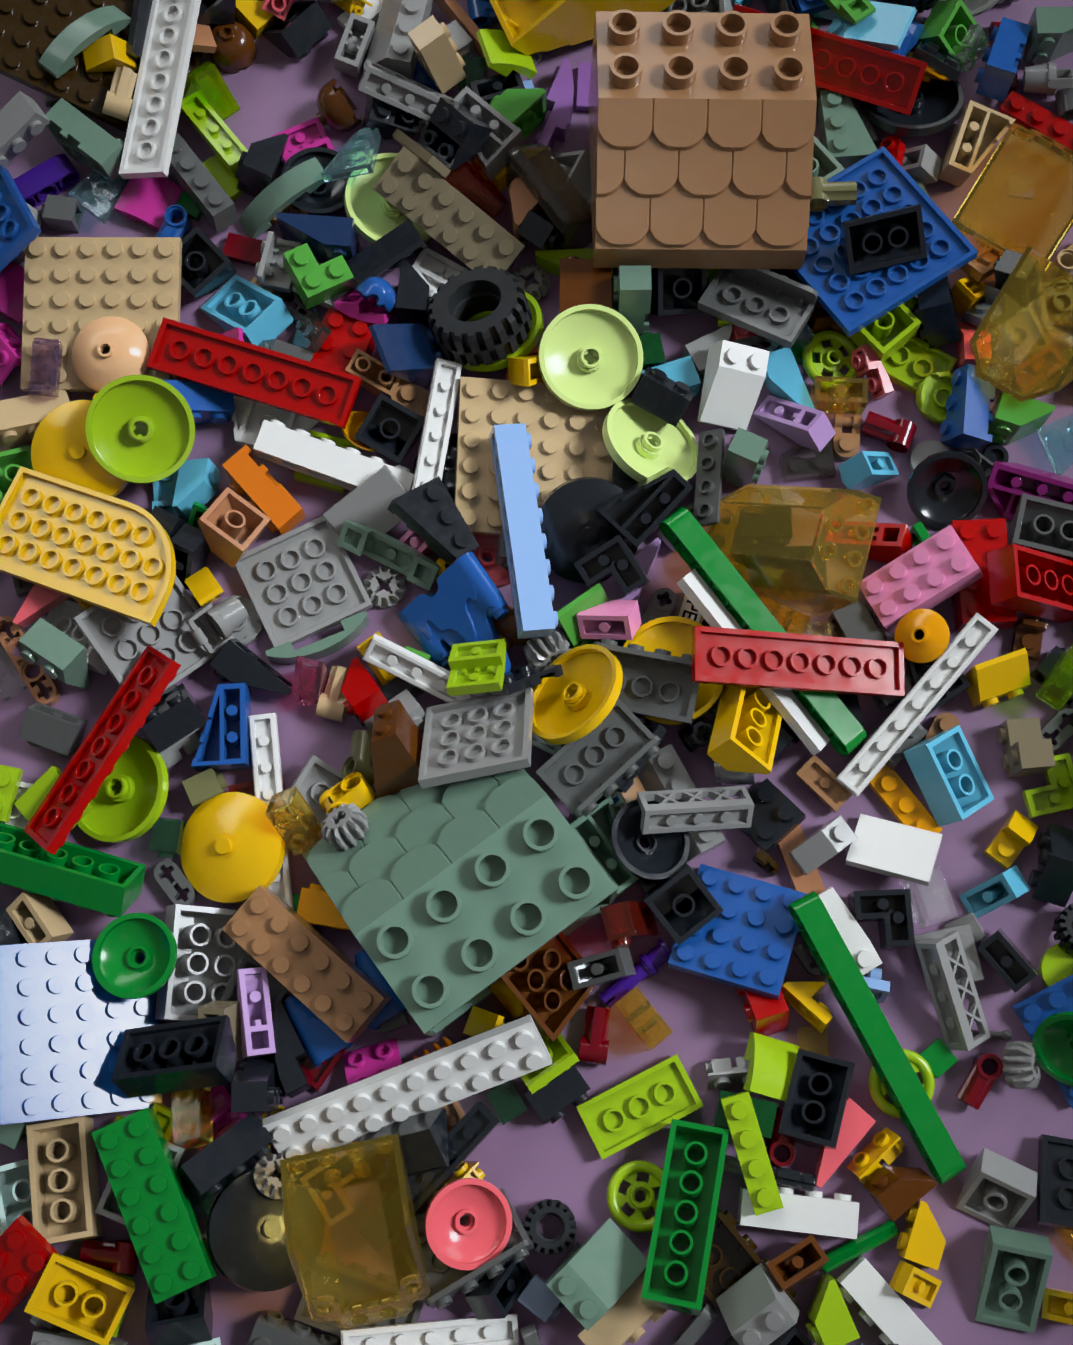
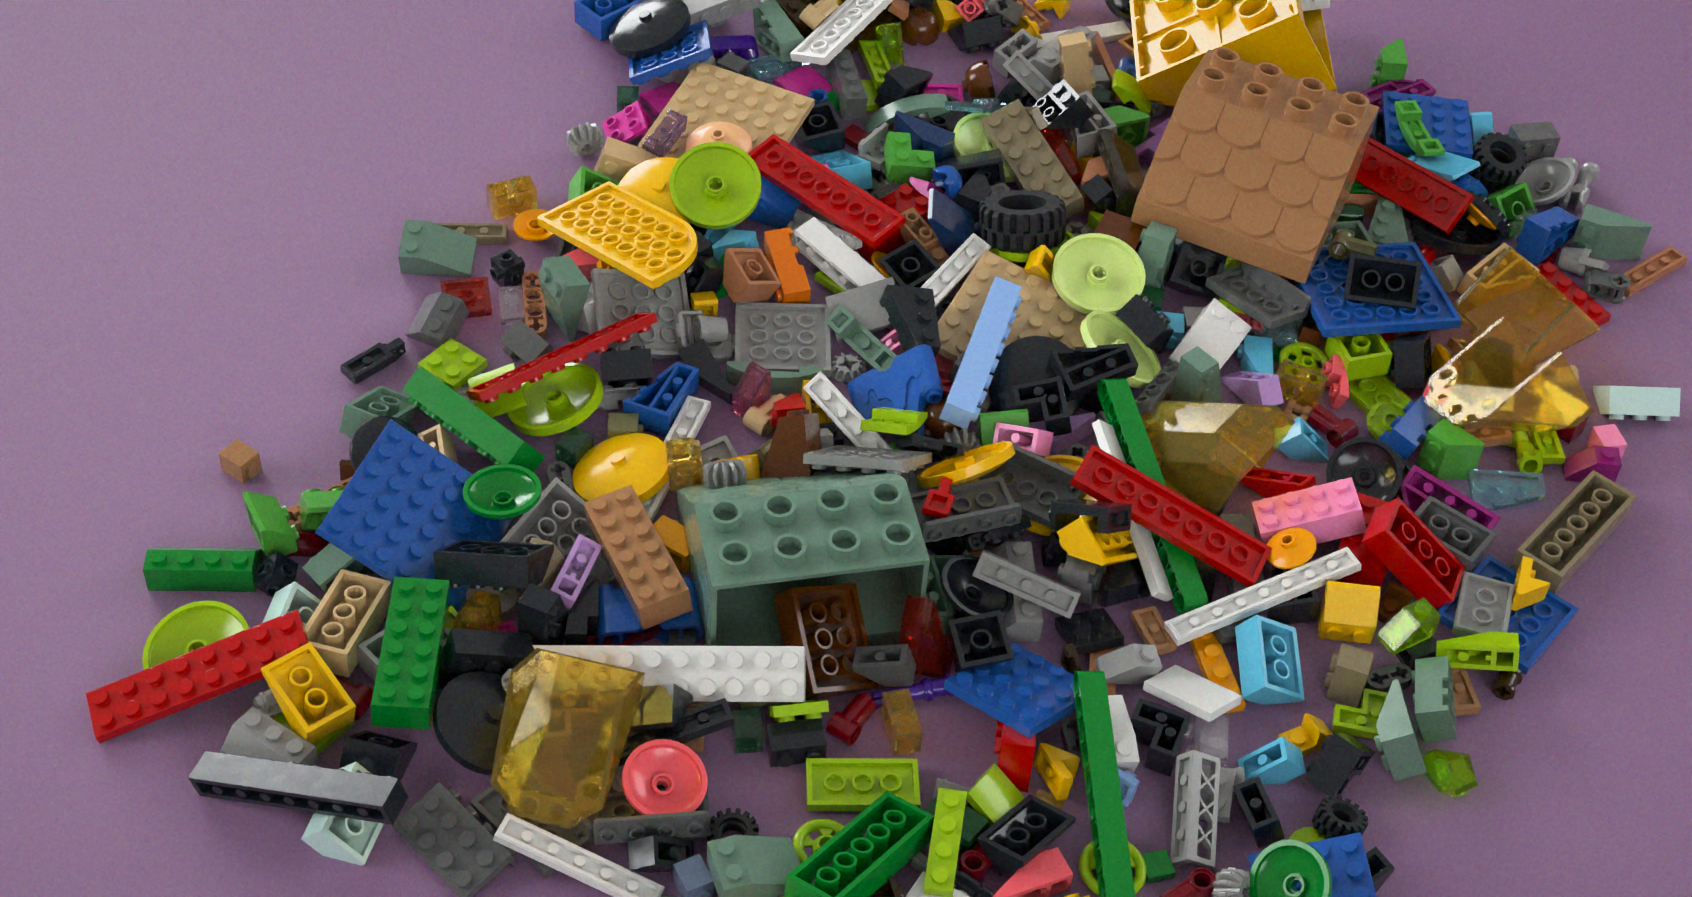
camera: 20 degrees right, 30 degrees down
(577, 772) = (940, 501): none -> red plate
(729, 709) = (1111, 515): none -> black panel

